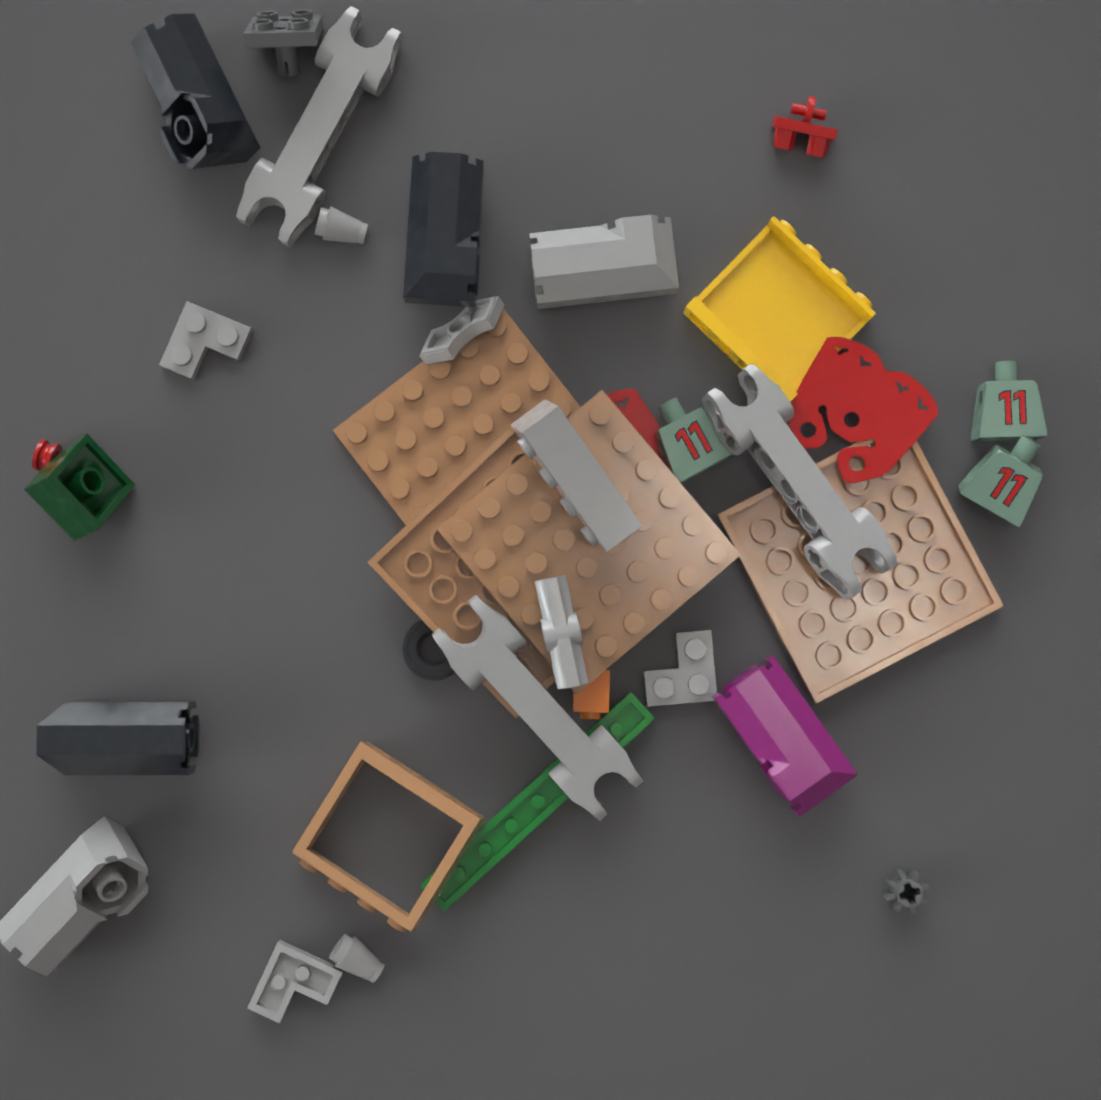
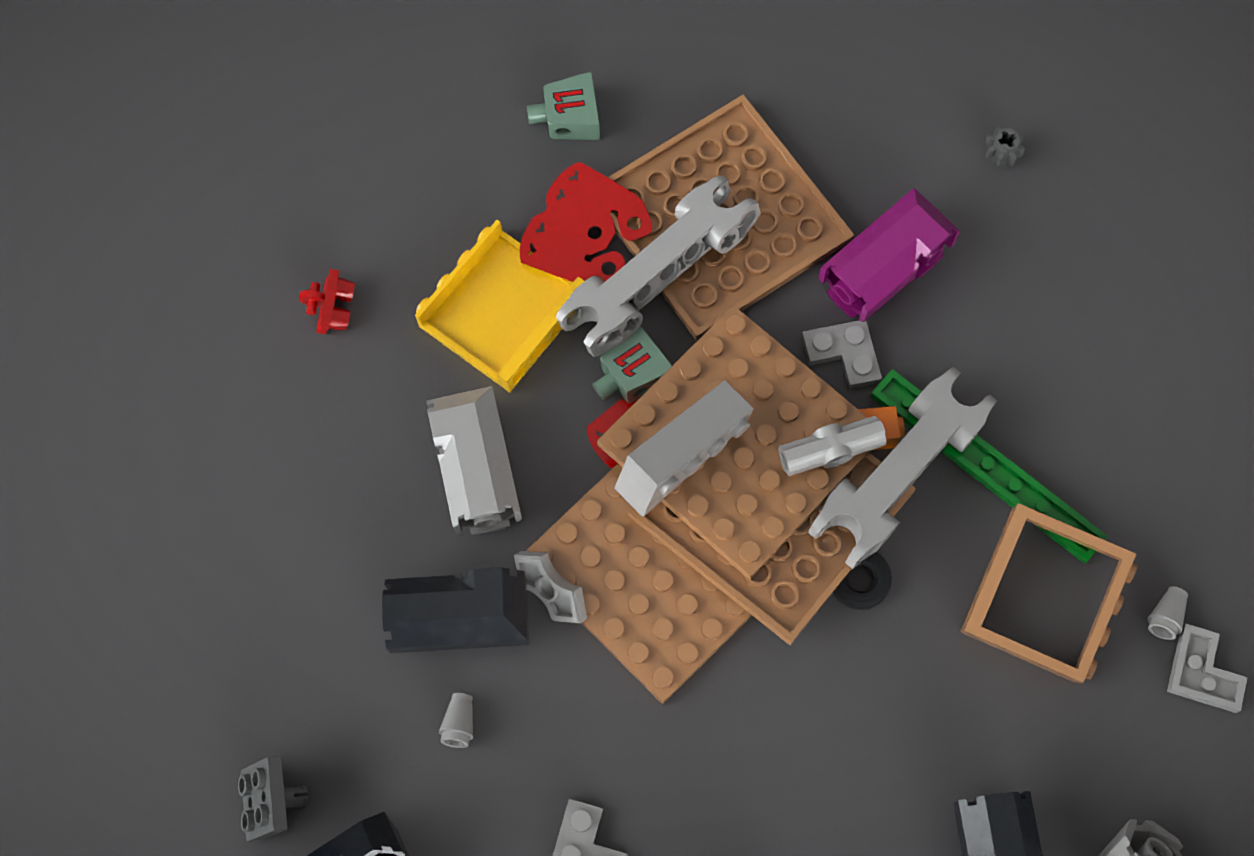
camera: 90 degrees left, 15 degrees down
(292, 179) = (417, 777): light grey piece -> none
(1005, 480) = (634, 102): sand green torso -> none

